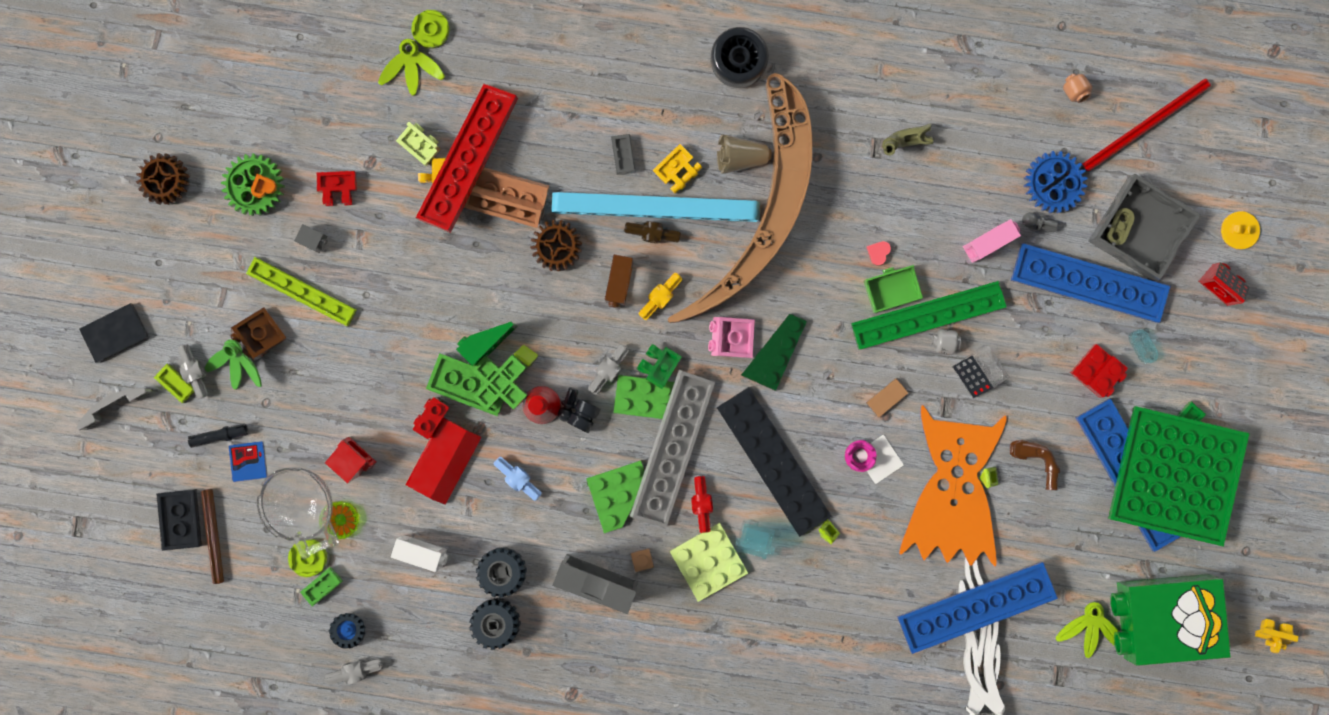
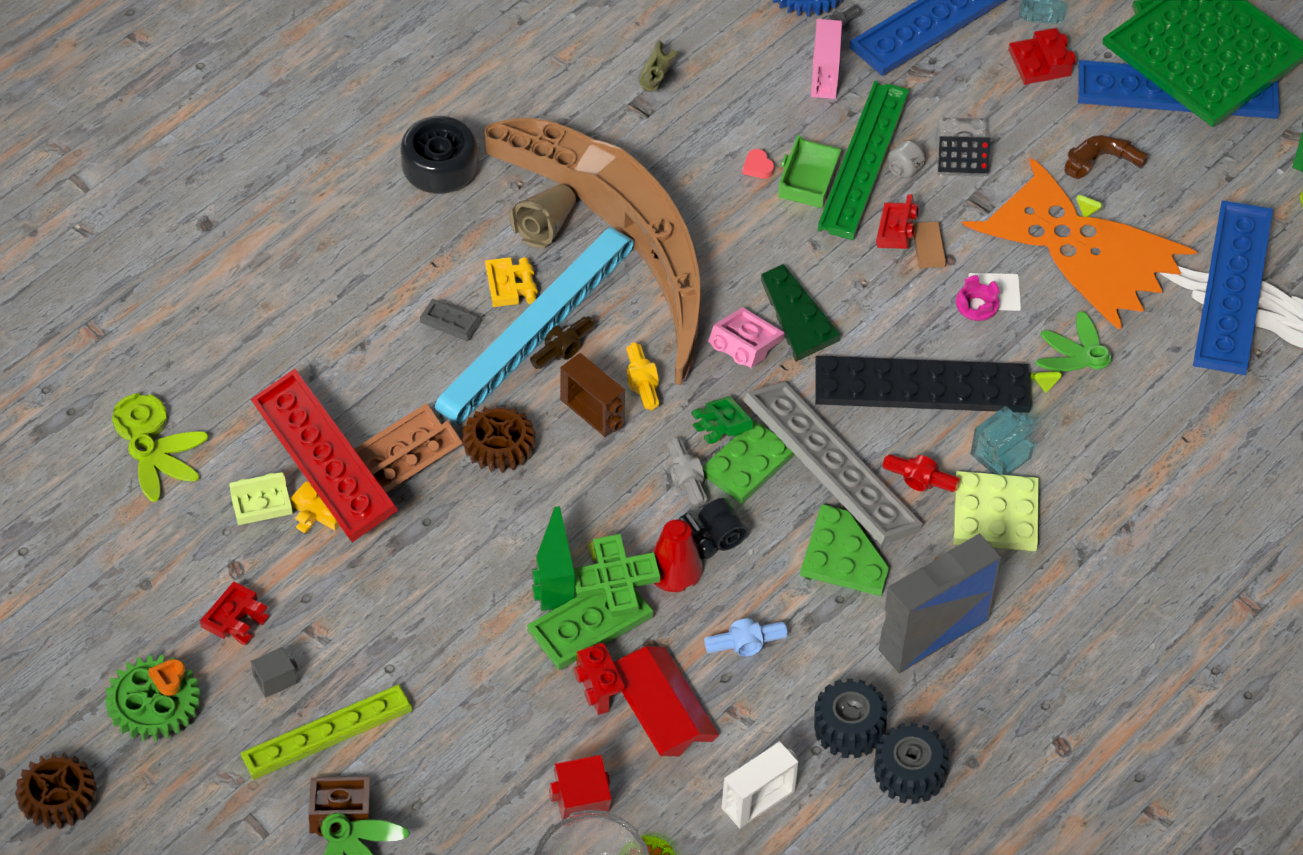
camera: 60 degrees left, 35 degrees down
(864, 543) = (1079, 357): none -> bright green plant
(886, 370) = (897, 224): none -> red bracket

